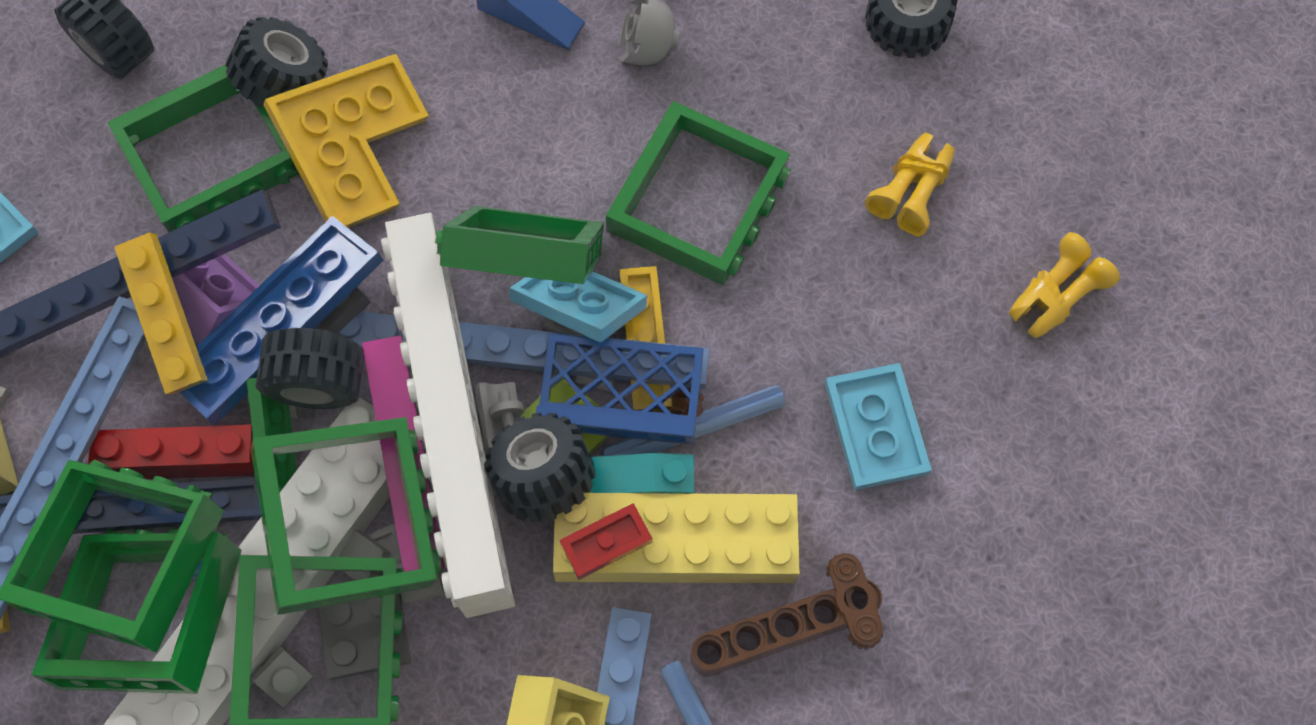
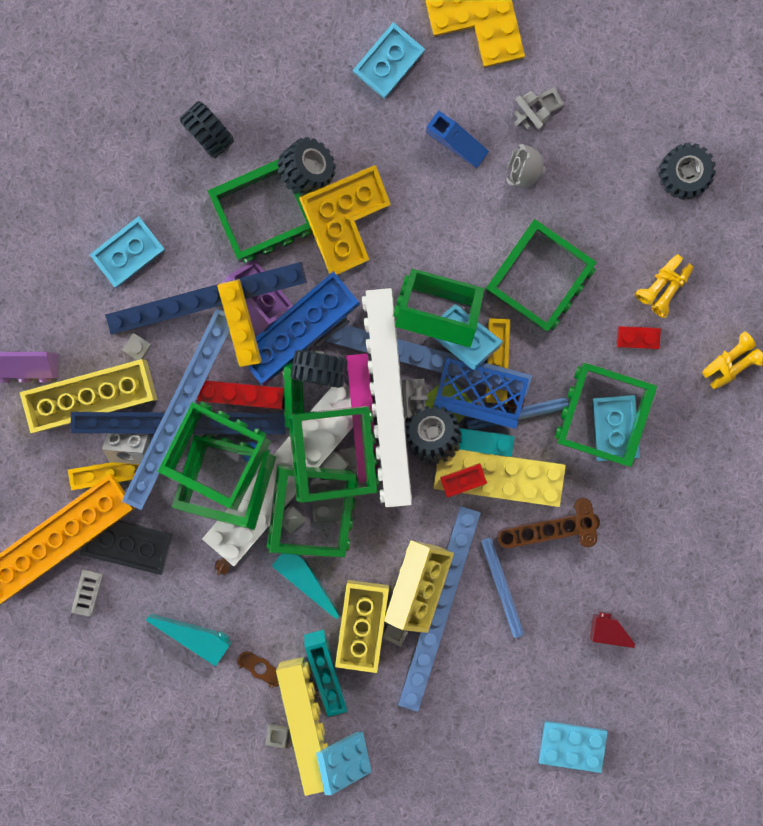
camera: 10 degrees right, 20 degrees up
(844, 464) = (638, 425): none -> green window
(886, 272) = (638, 337): none -> red plate

